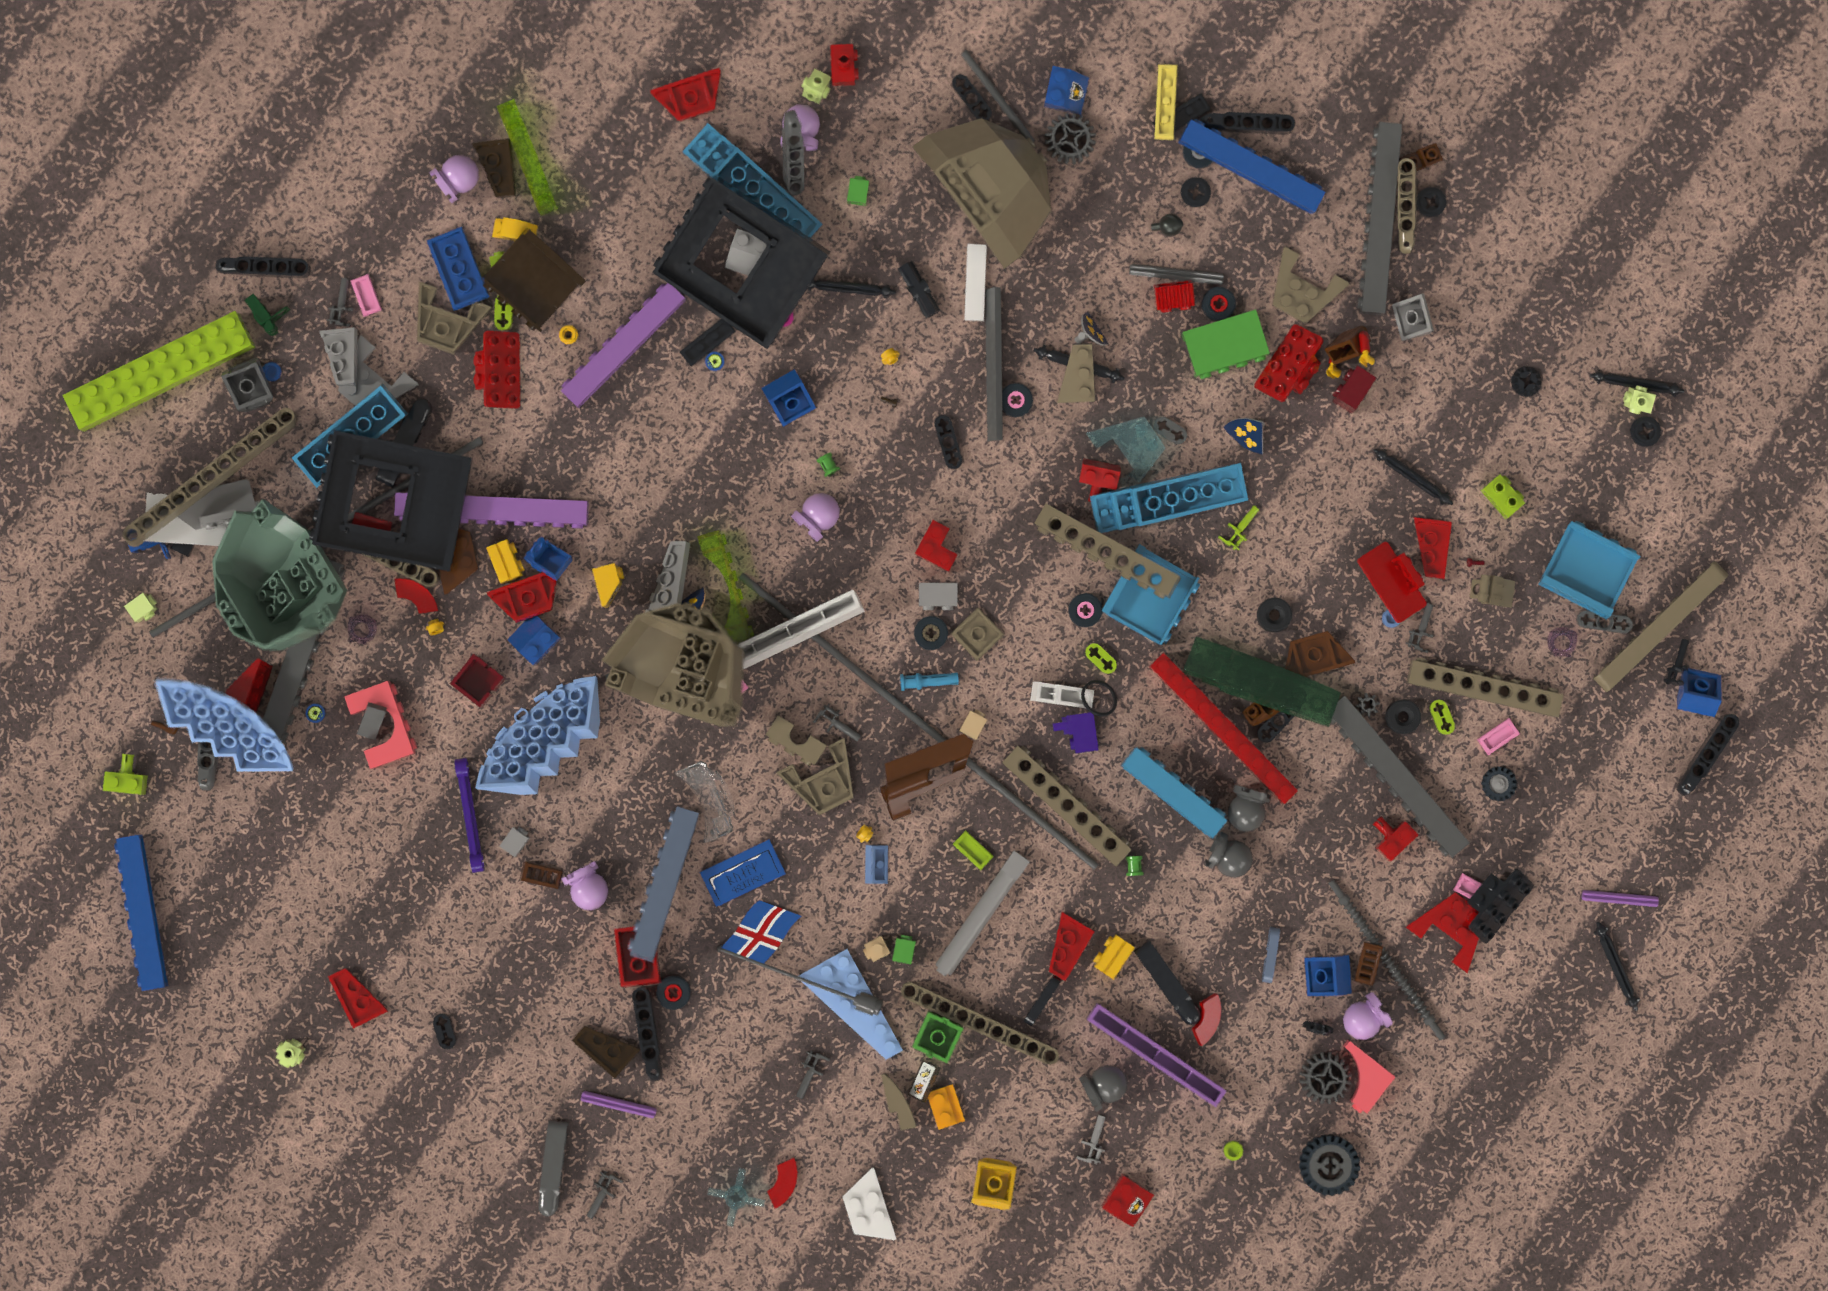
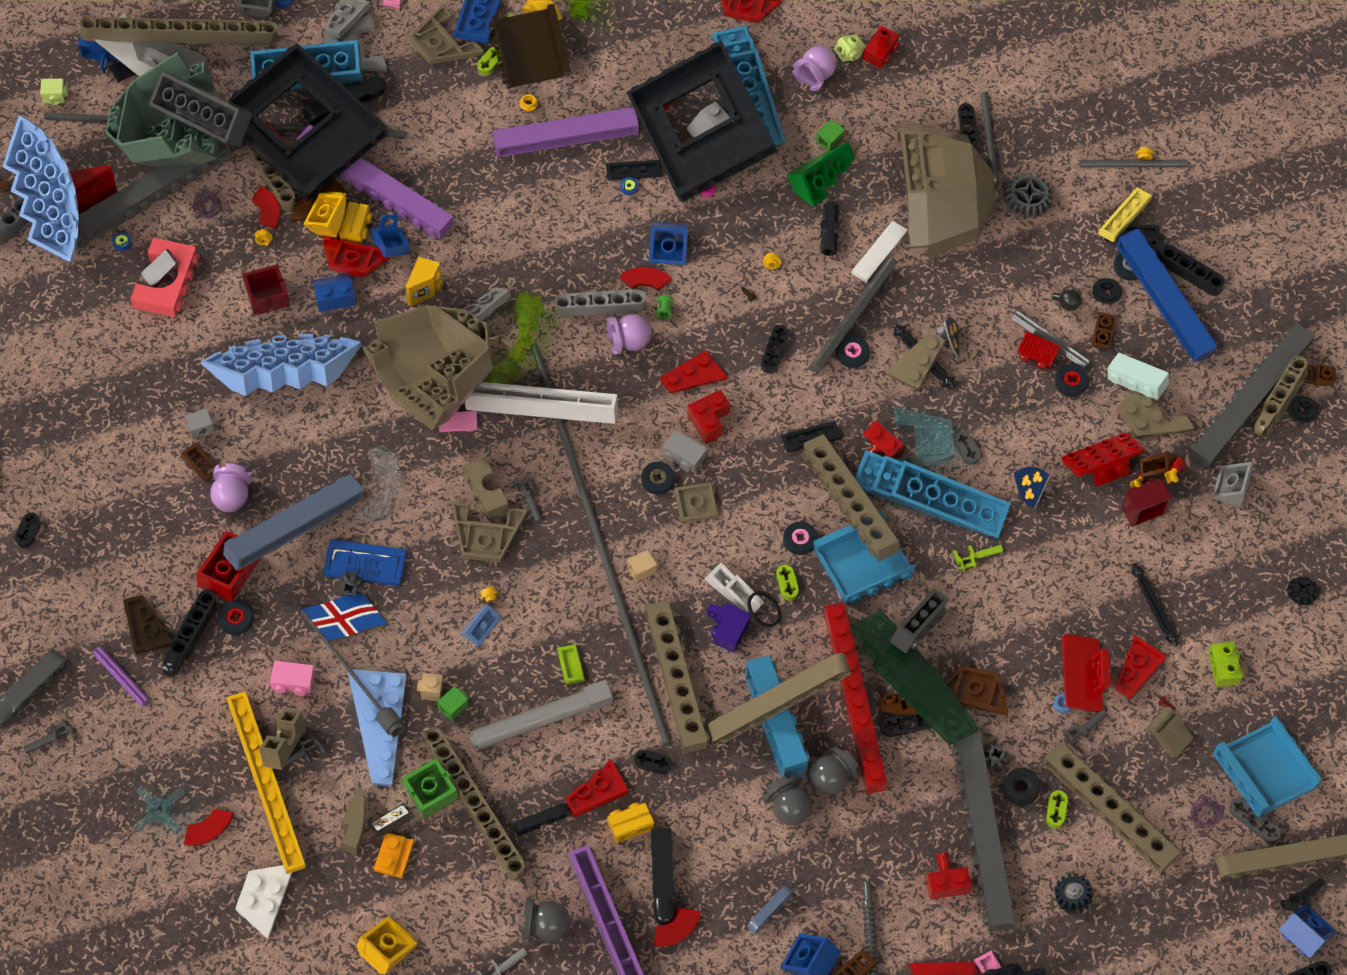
camera: 30 degrees right, 25 degrees down
(300, 556) = (200, 109): none -> dark grey brick
(476, 855) = (160, 416): dark purple piece -> none
(477, 571) = (327, 214): none -> yellow slope
(499, 369) = (457, 93): red bracket -> none
(746, 902) = (350, 583): none -> dark grey gear
(758, 1015) = (292, 678): none -> bright pink brick
(761, 500) = (608, 299): none -> light grey beam
(790, 444) = (645, 277): none -> red tile
(793, 153) = (809, 42): dark grey piece -> none
(796, 1088) = (277, 750): none -> dark tan arch
(802, 1116) = (266, 784): none -> yellow plate
(854, 288) = (774, 197): black wheel -> none
(871, 244) = (816, 175): none -> green wedge
(894, 512) = (693, 373): none -> red wing
(909, 774) = (558, 564): reddish brown panel -> none
(919, 681) = (621, 507): dark azure pin -> none
(1032, 507) = (795, 440): none -> black tile
(1066, 90) = (1048, 160): blue slope -> none
(1094, 886) = (654, 757): none -> black beam
(1134, 866) = (700, 761): bright green bush -> none
(1140, 39) = (1133, 163): none -> dark grey piece
(1145, 24) = (1145, 153): none -> yellow plate
(1176, 790) = (779, 698): none -> dark tan beam
(1216, 234) = (1103, 330): none -> reddish brown slope
(1226, 344) = (1057, 410): bright green panel -> none
(1236, 630) = (920, 620): none -> dark grey brick
(1275, 267) = (1138, 376): none -> light aqua brick
(1279, 605) = (964, 627): black tyre -> none
(1498, 736) = (1098, 856): bright pink tile -> none

